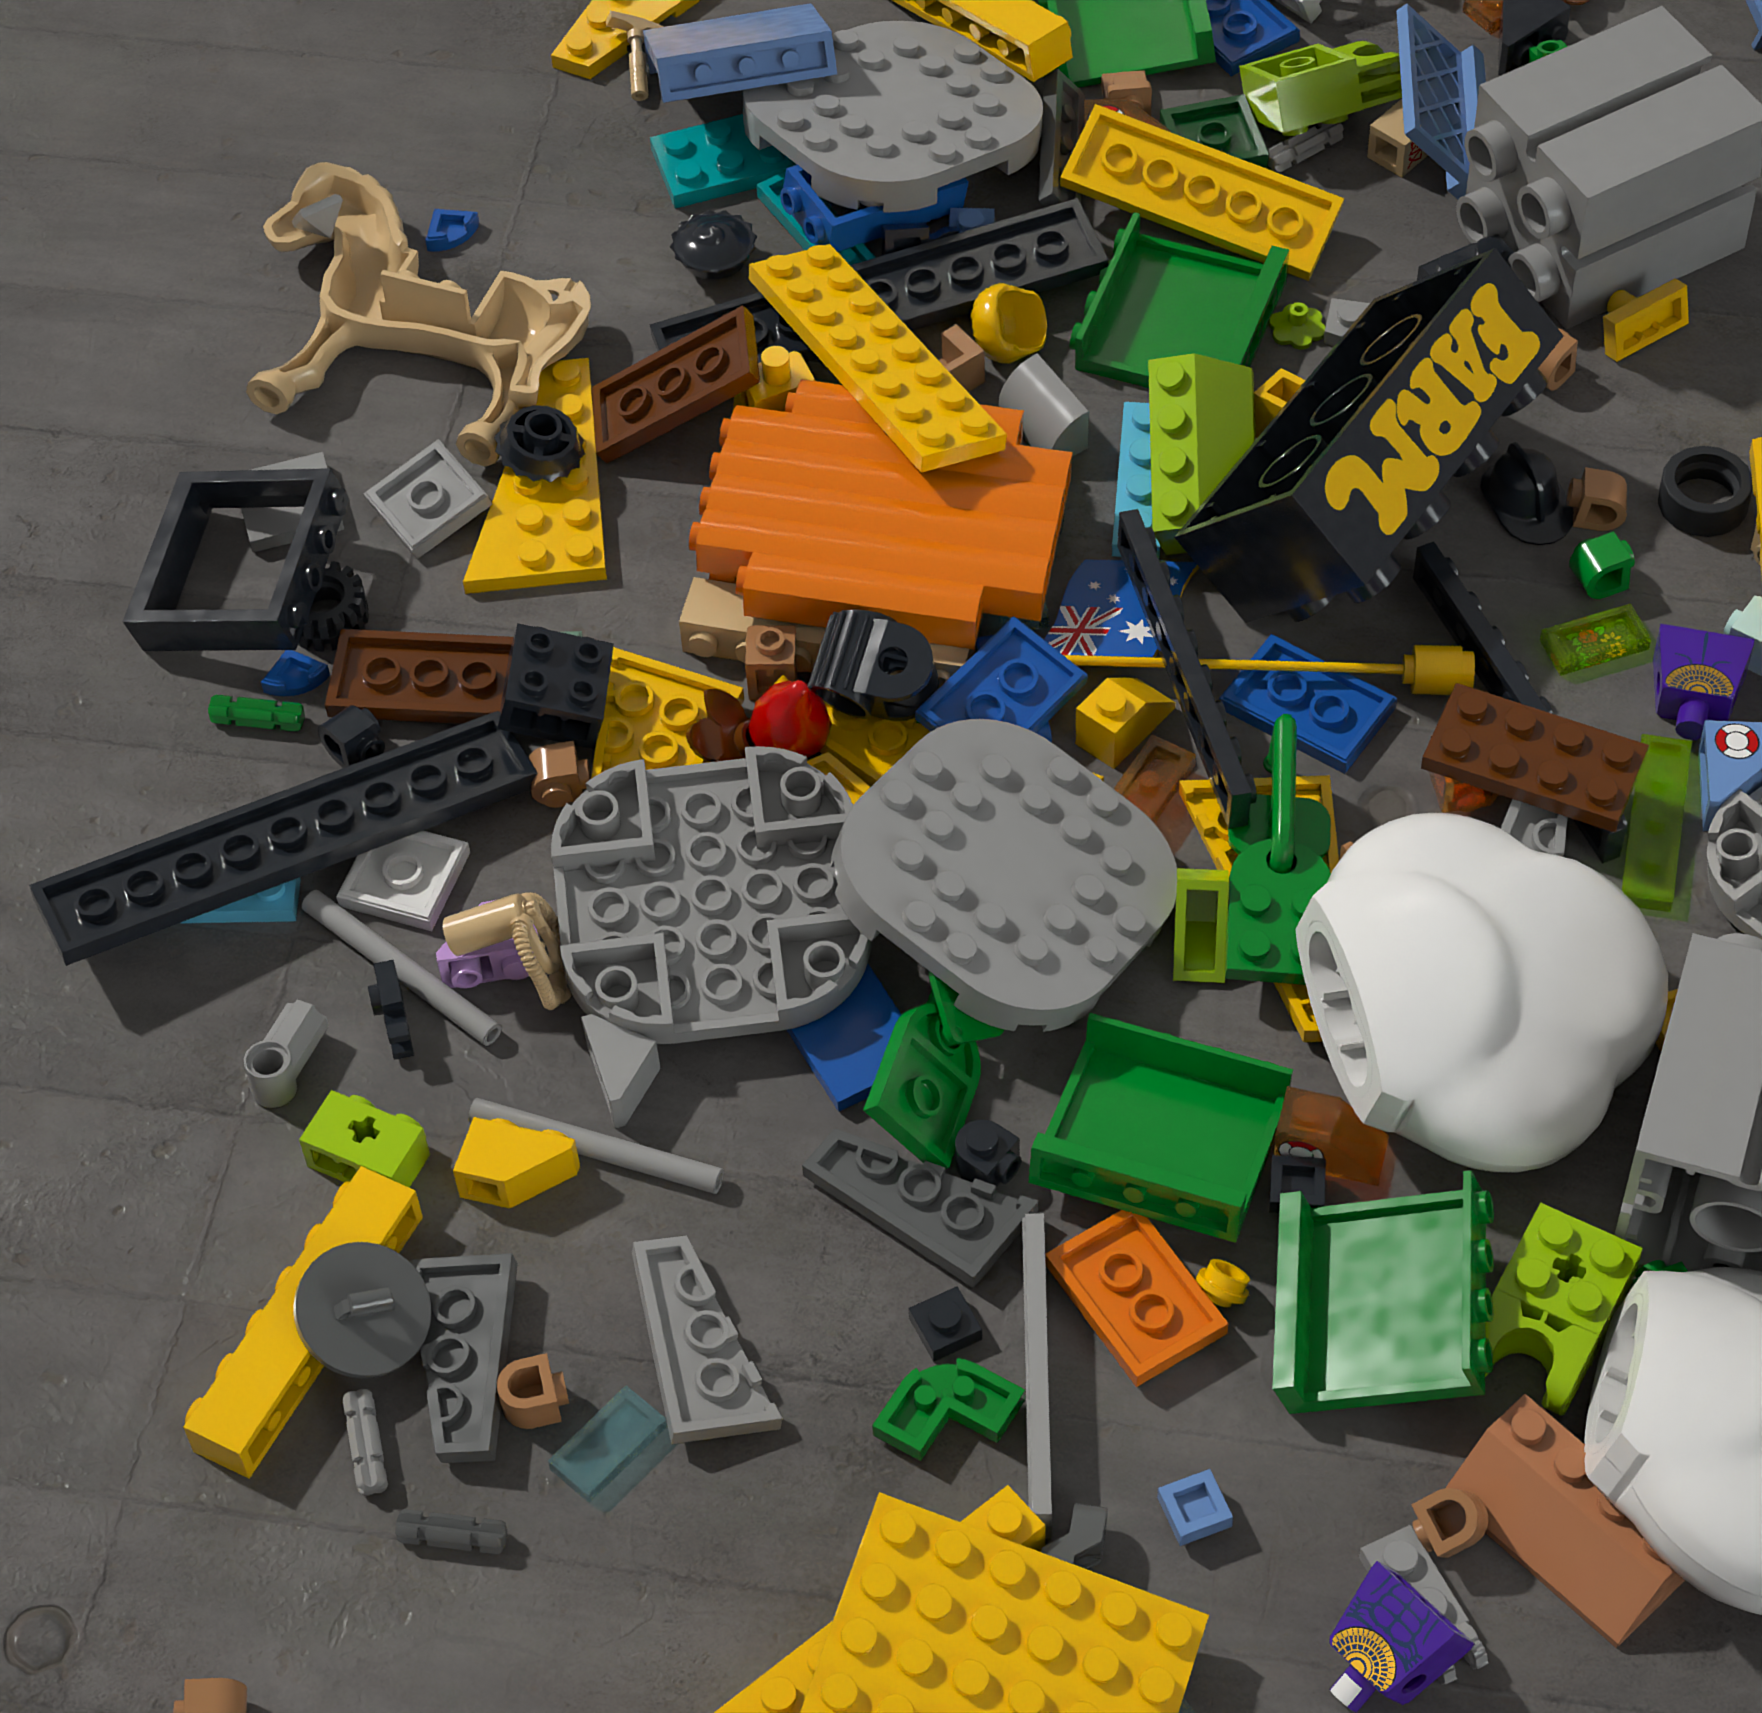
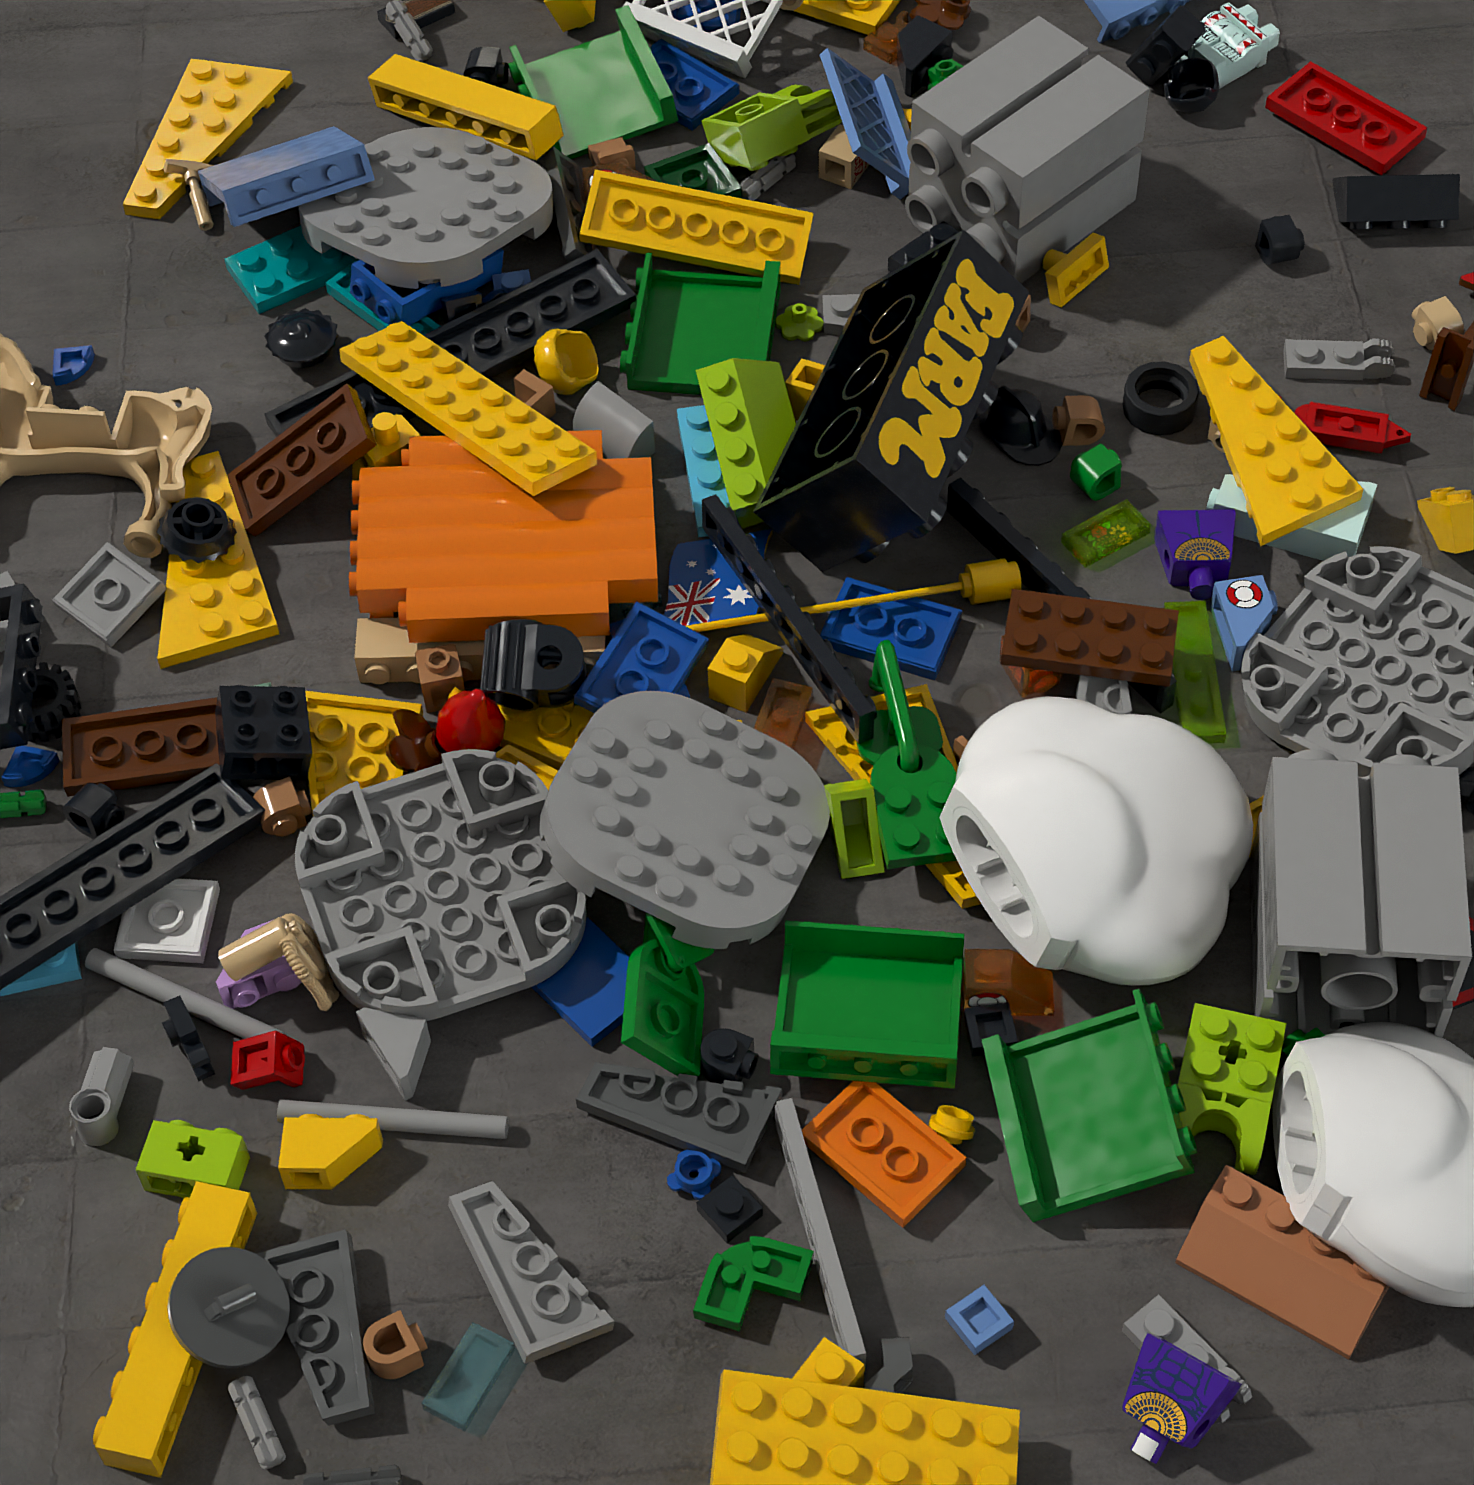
camera: 15 degrees left, 0 degrees up
(473, 1051) = (267, 1060): none -> red bracket
(914, 1262) = (693, 1161): none -> blue plate
(1450, 1521) = (1190, 1284): medium nougat plate -> none

